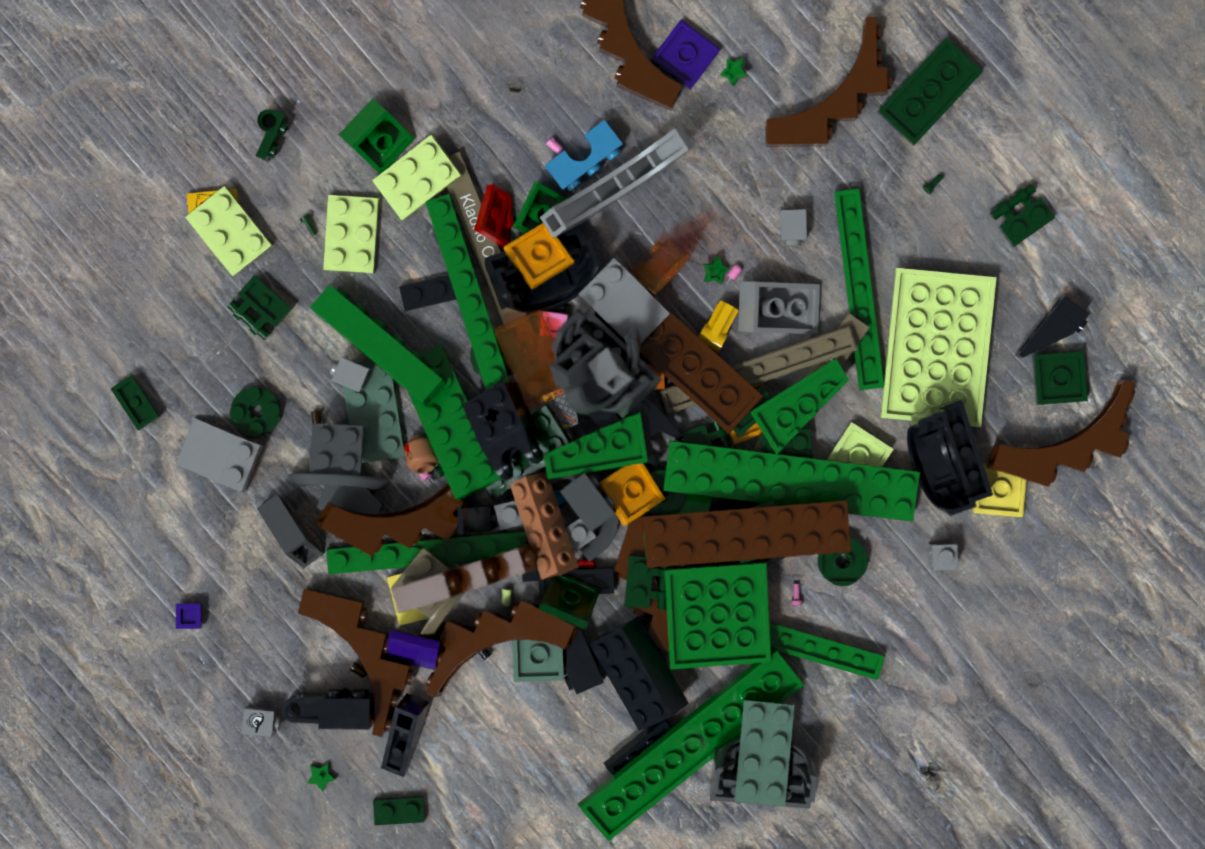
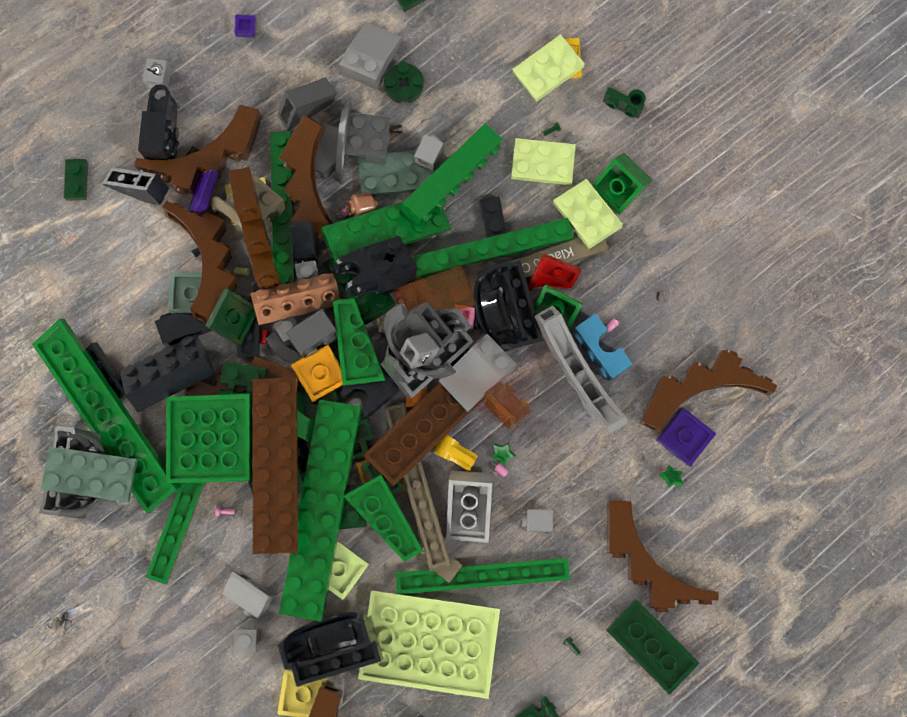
camera: 90 degrees right, 10 degrees down
(264, 302) = (491, 92): dark green plate -> none
(321, 776) = (109, 121): green piece -> none
(538, 256) = (520, 303): light orange tile -> none
(851, 572) = (241, 559): dark green plate -> none
(892, 558) = (247, 594): none -> light grey slope

